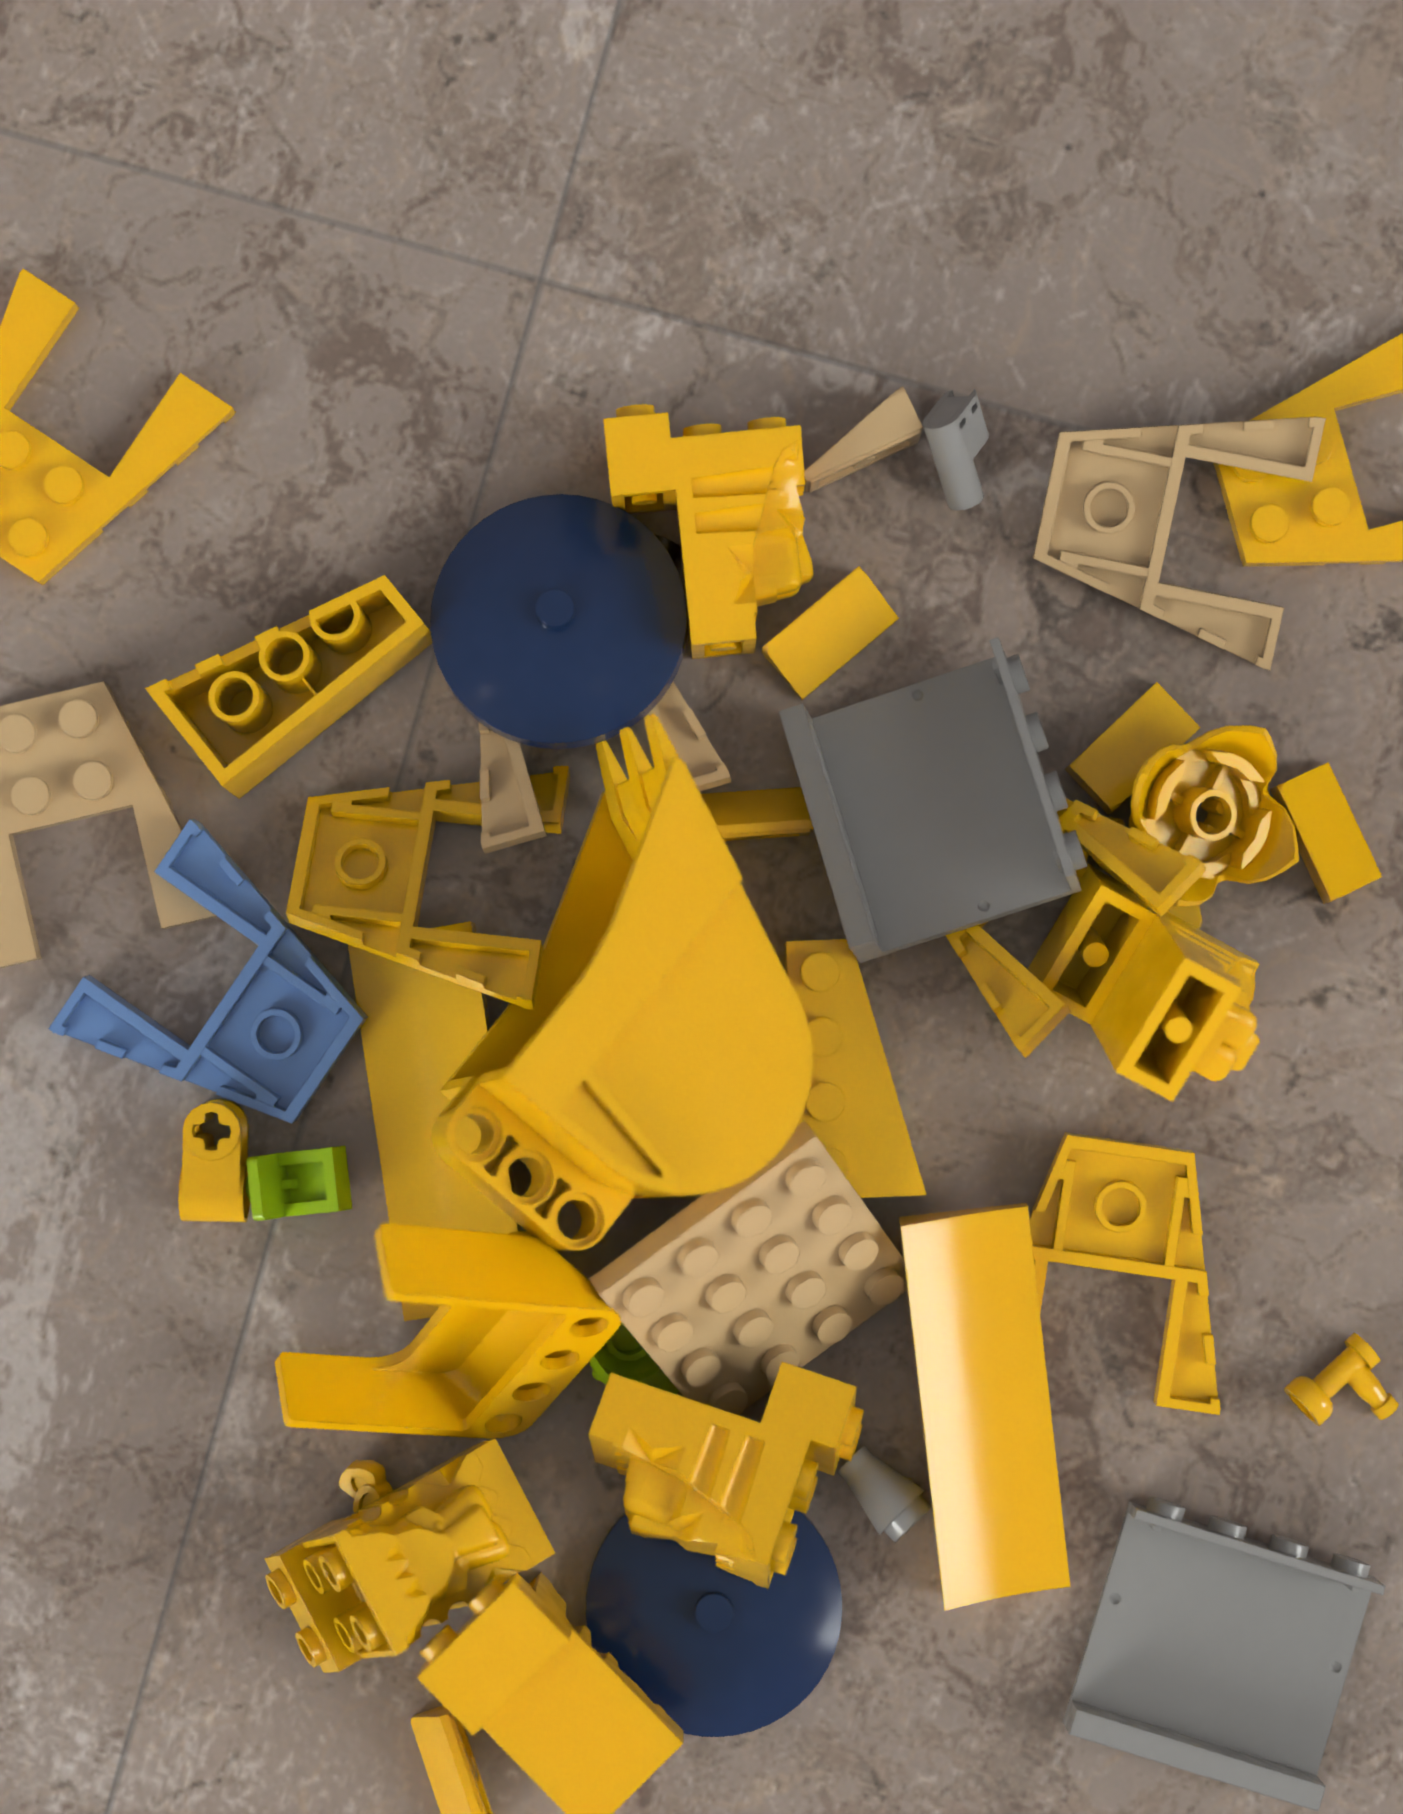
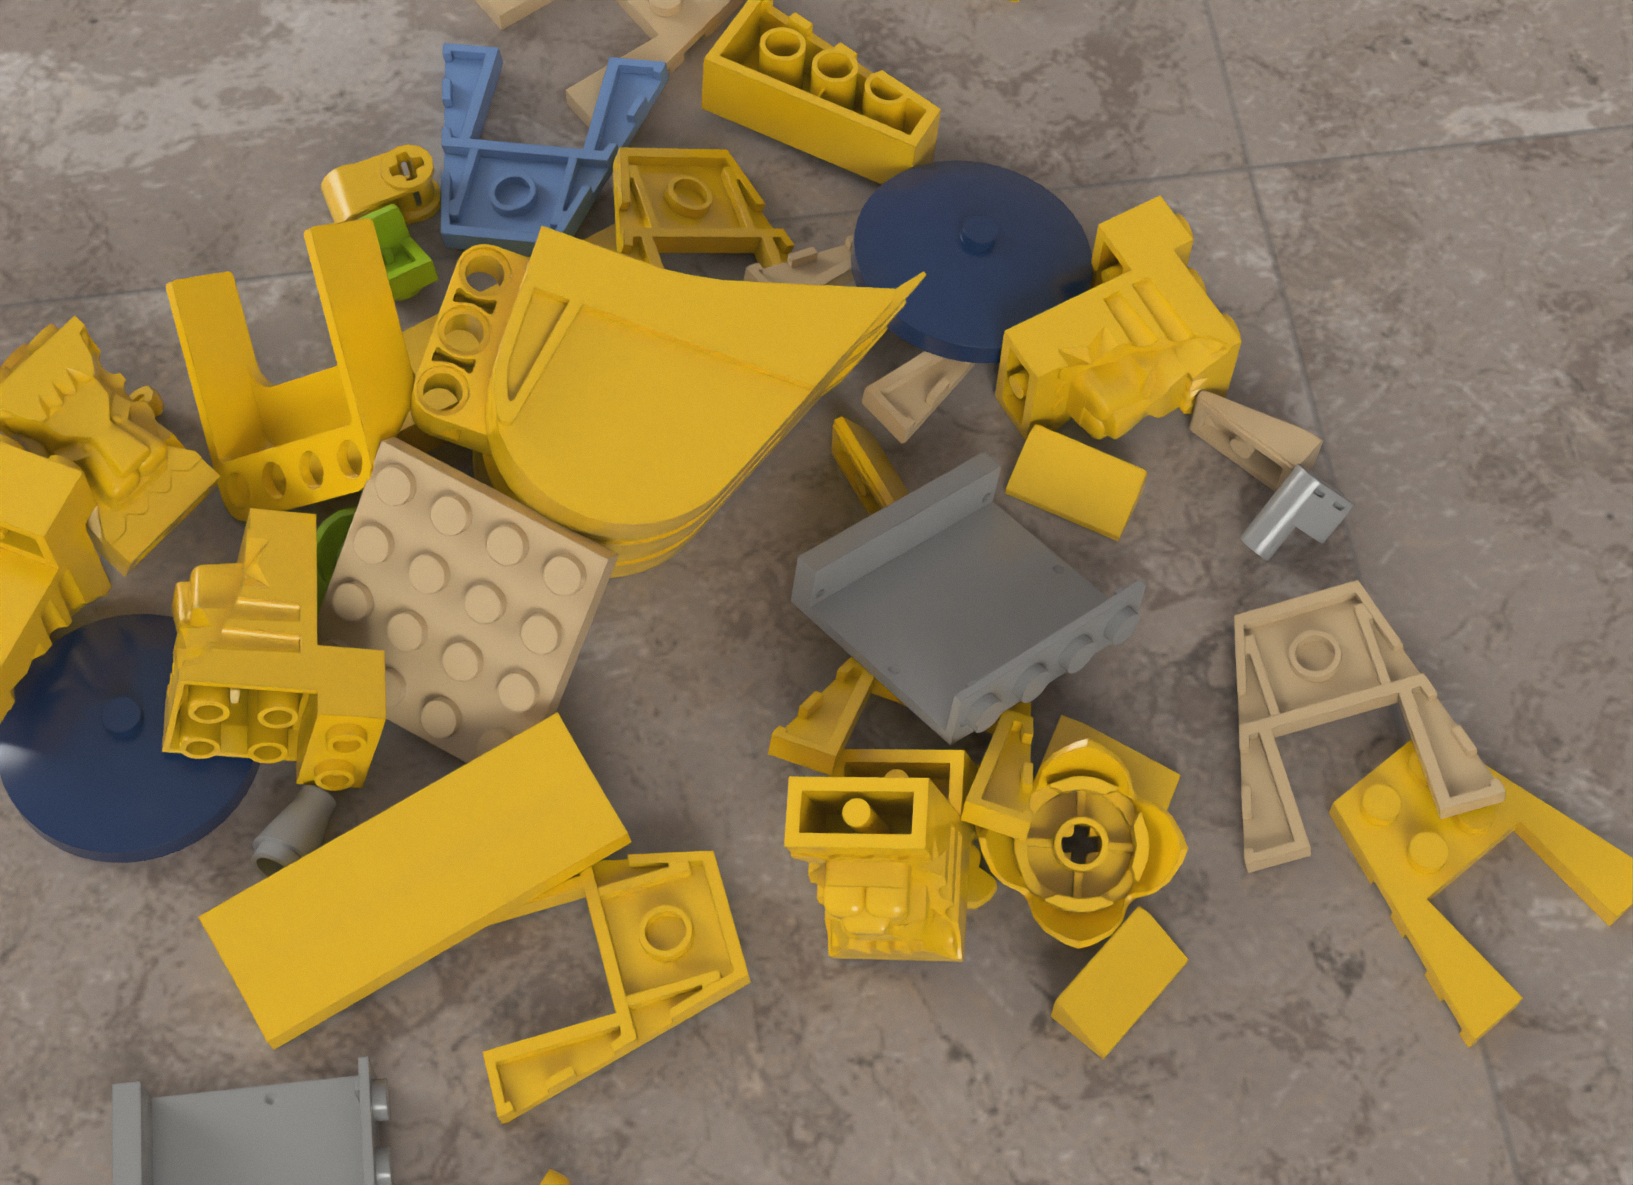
camera: 65 degrees right, 25 degrees down
(851, 1089) = (677, 637): yellow wedge -> none

